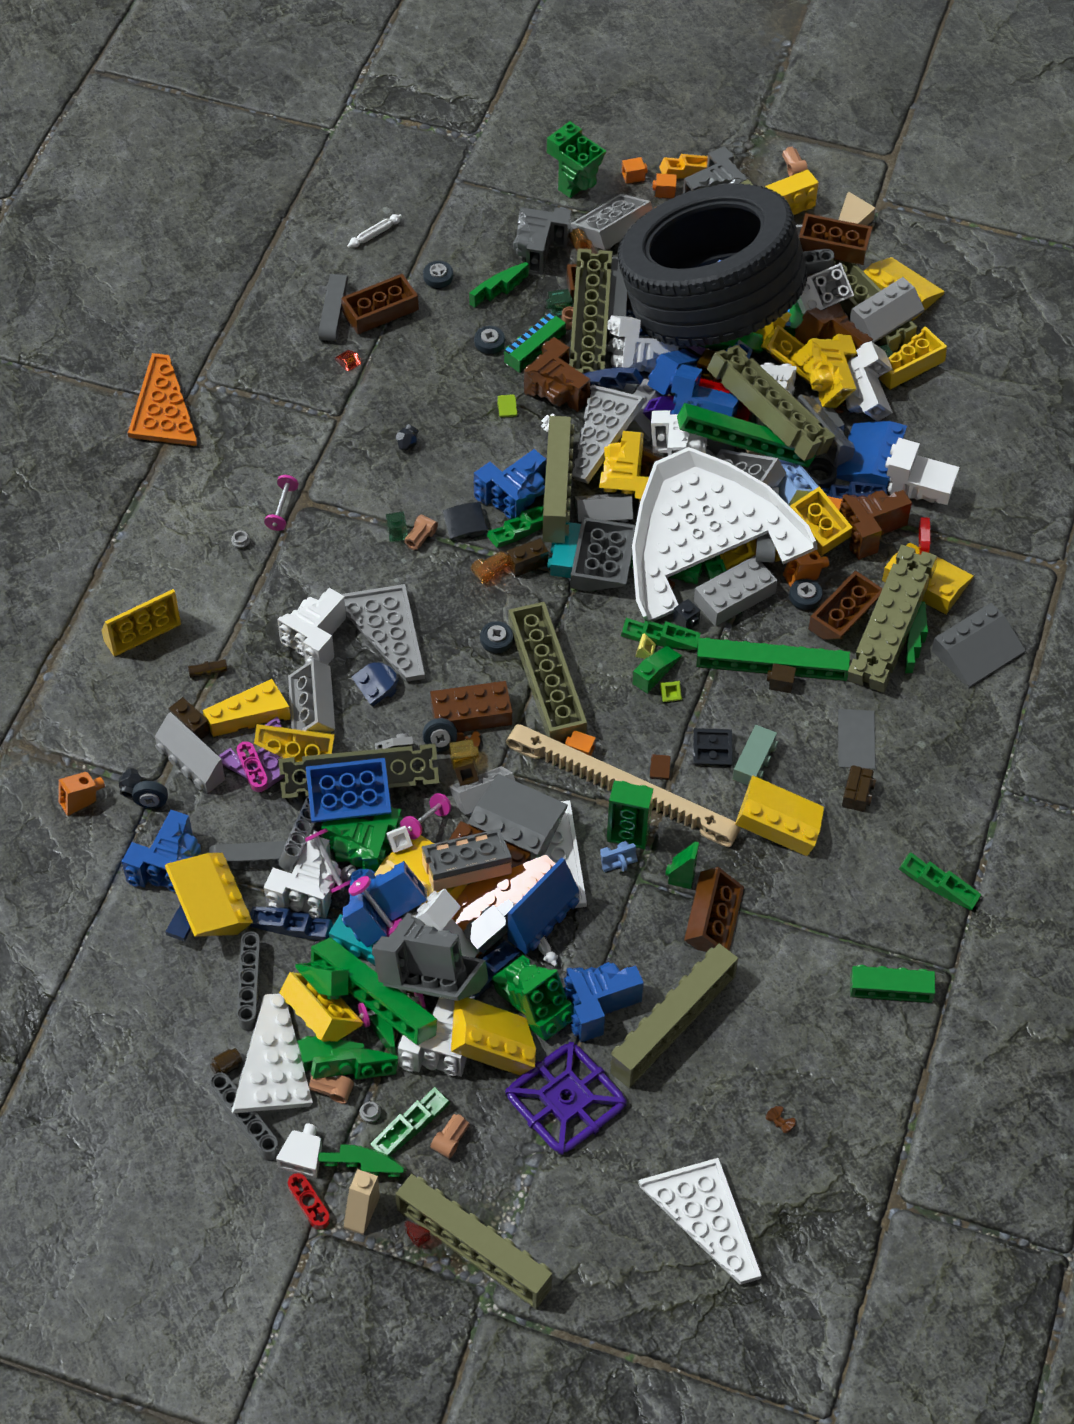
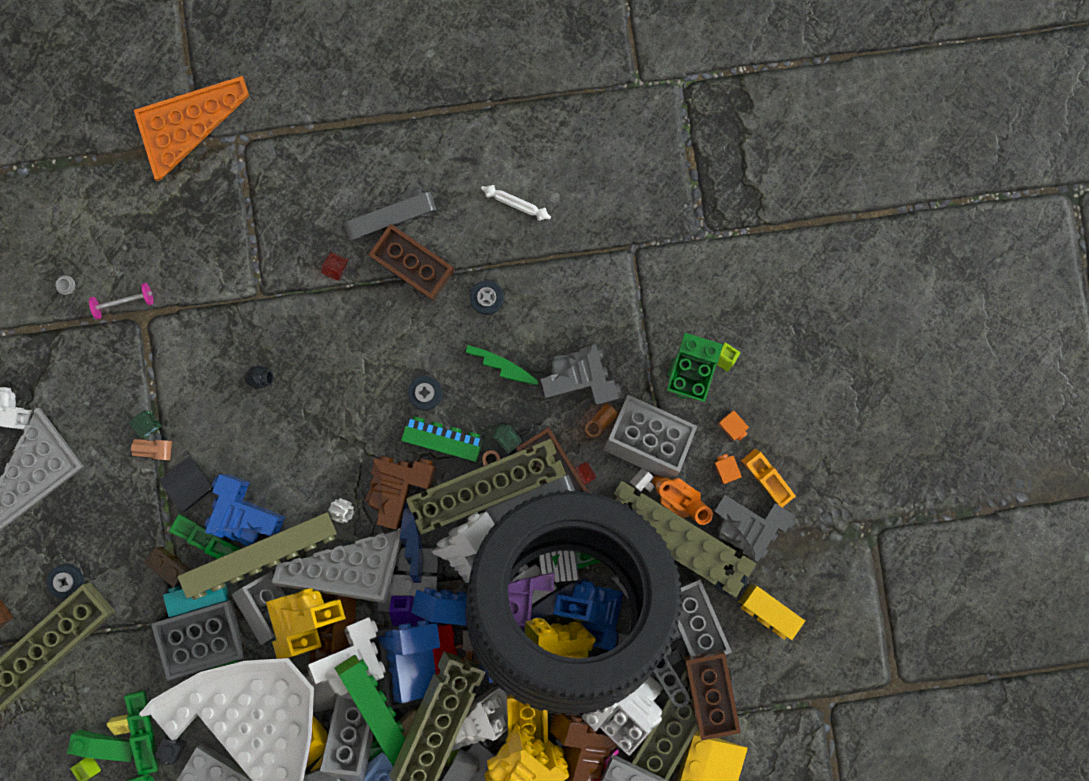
camera: 65 degrees right, 30 degrees up
(485, 569) = (138, 533): clear orange piece -> none
(507, 406) = (348, 452): lime slope -> none
(793, 161) = (827, 593): nougat piece -> none
(857, 210) = (781, 686): tan slope -> none

